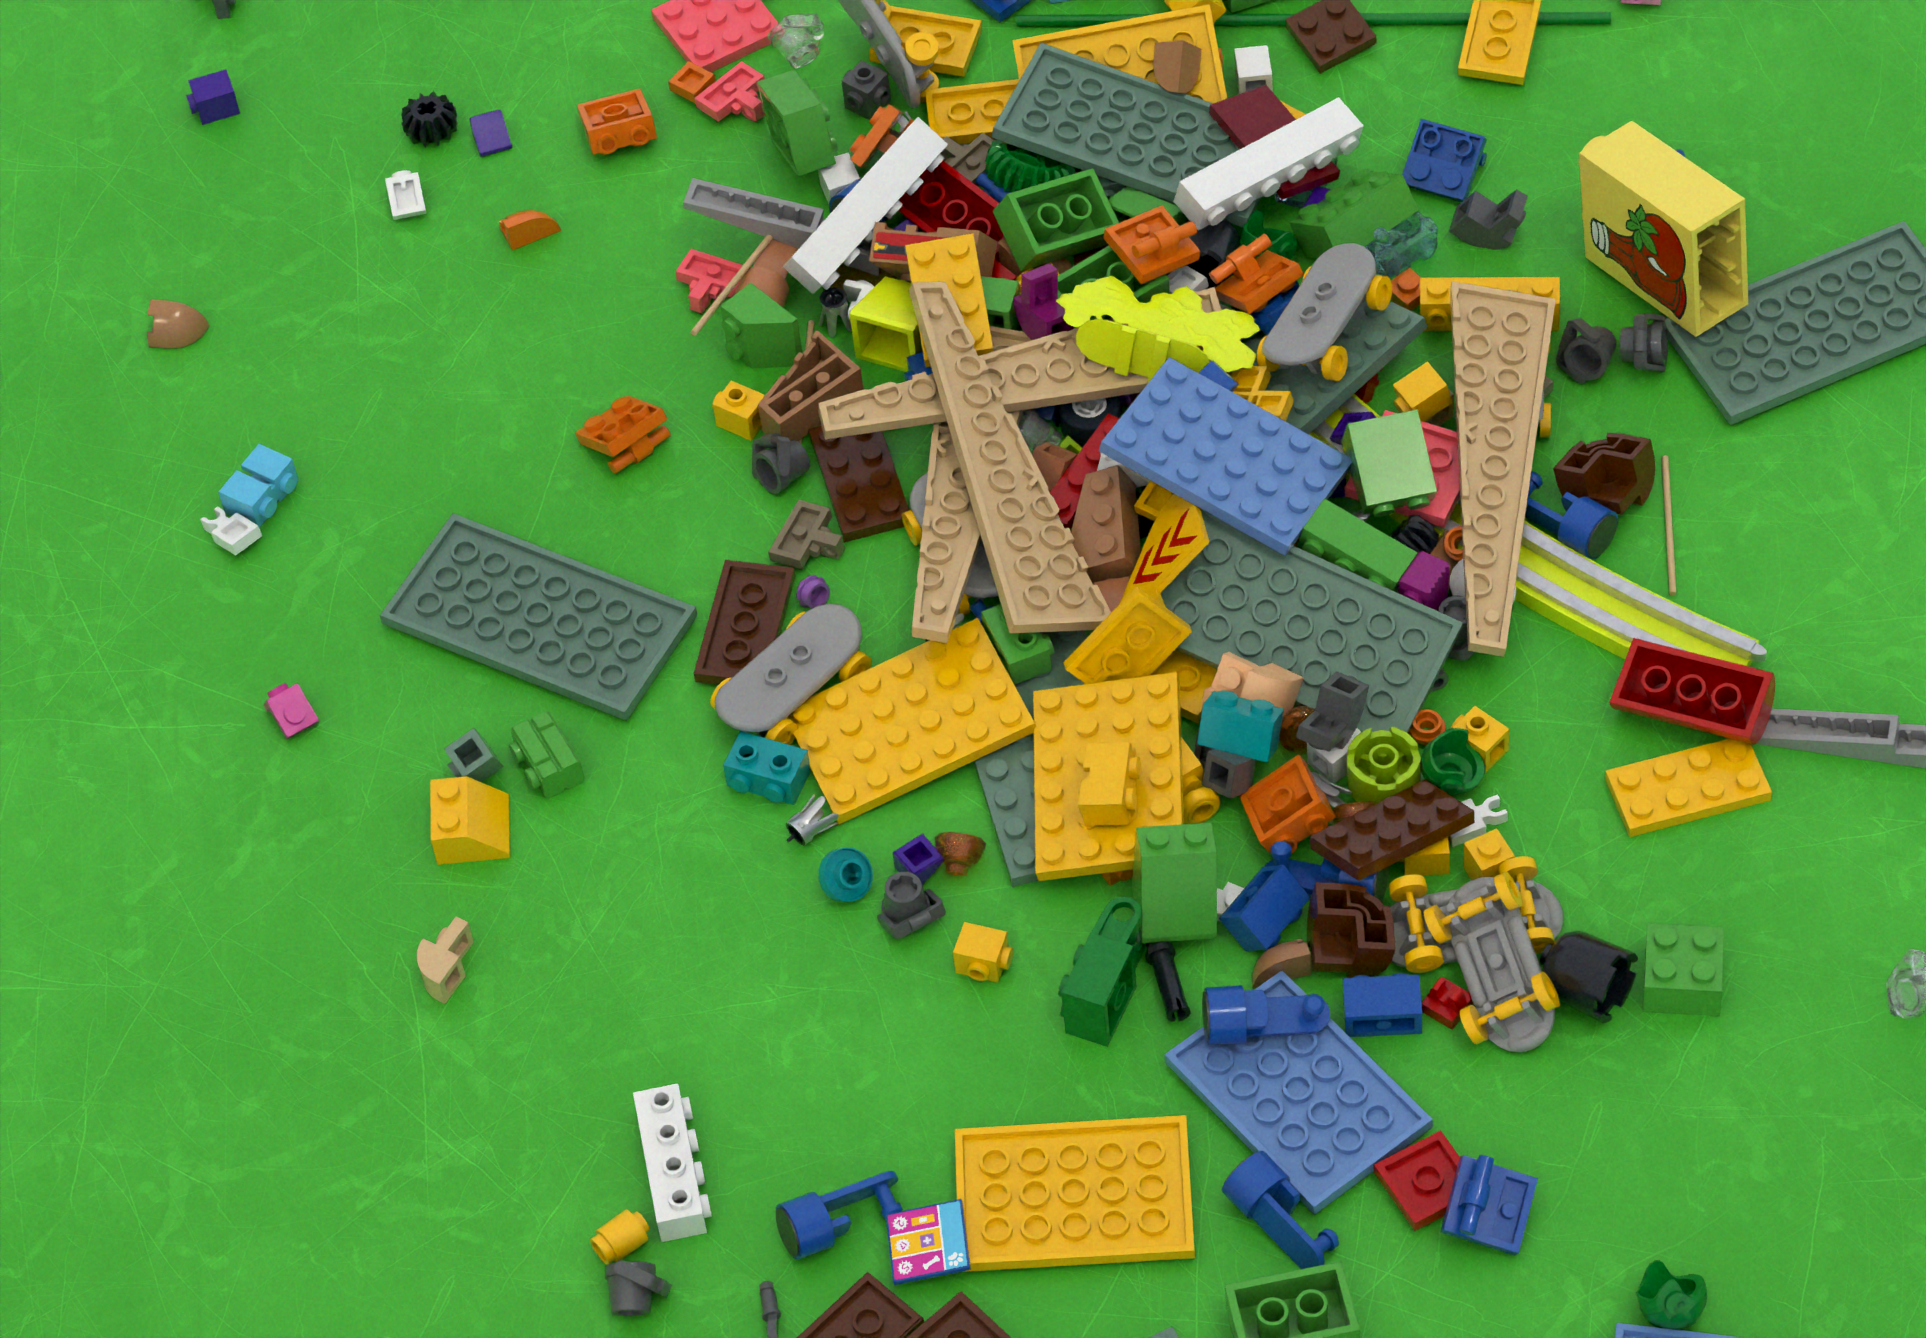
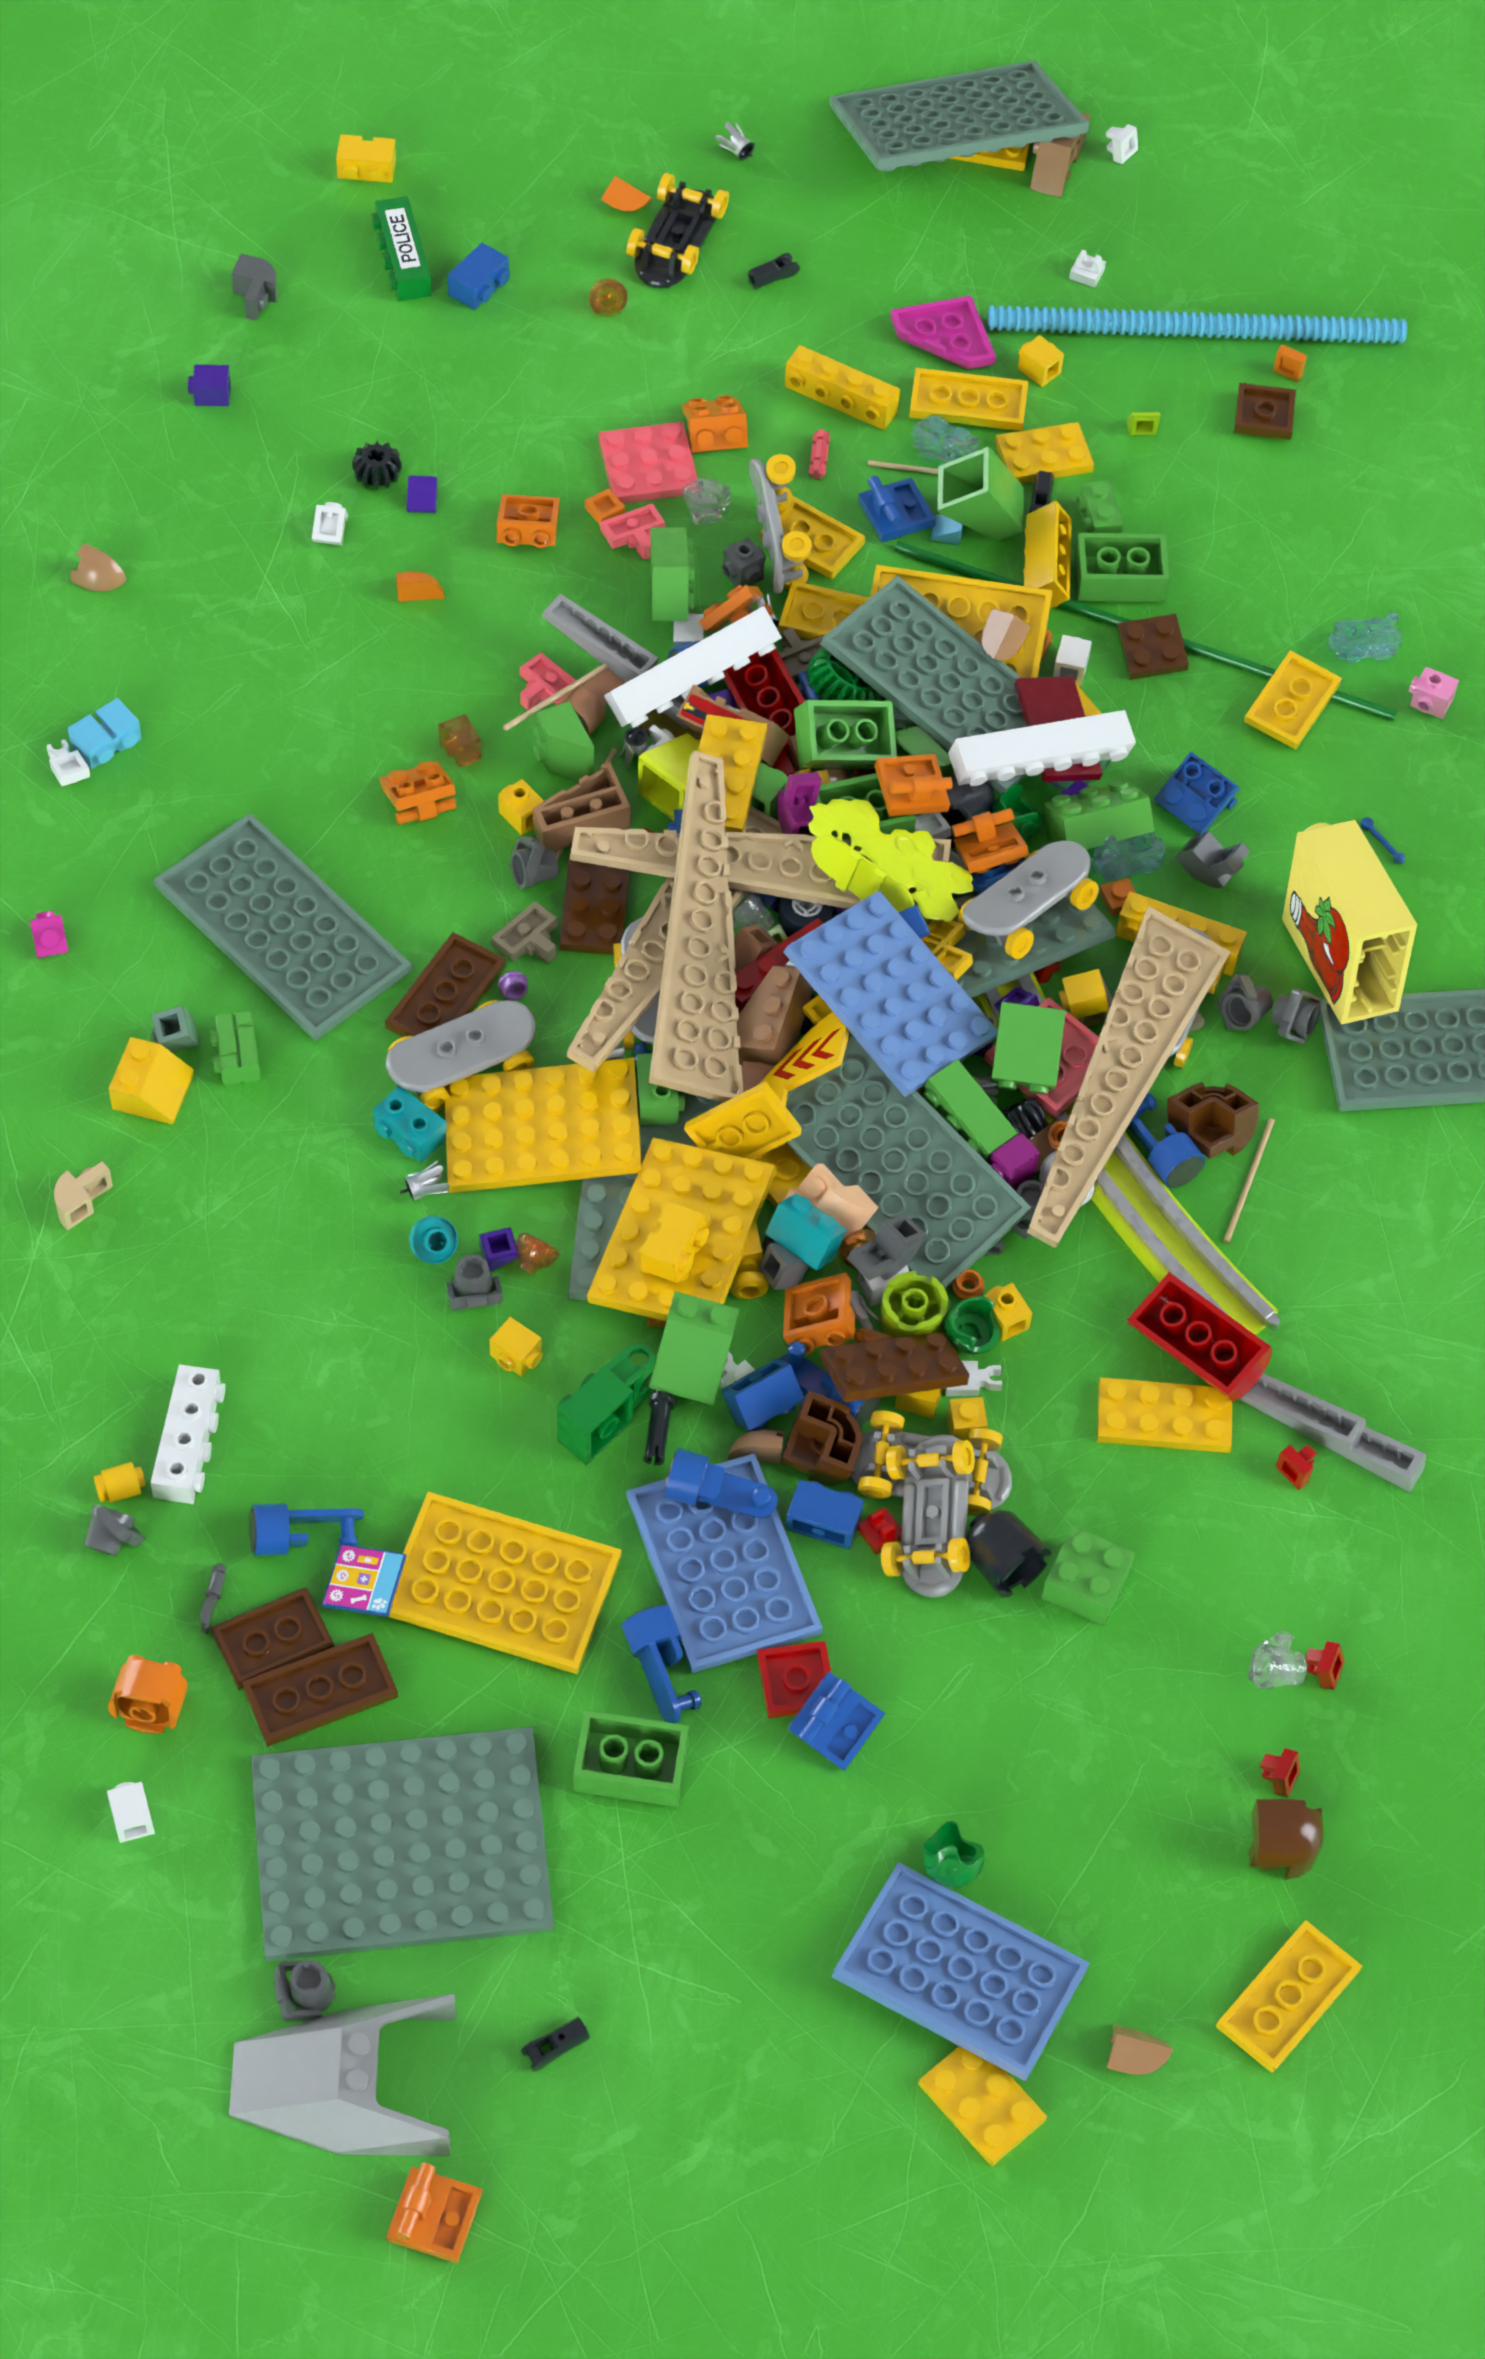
camera: 10 degrees right, 5 degrees up
(645, 365) = (460, 740): none -> clear orange brick
(1846, 786) = (1296, 1465): none -> red tile

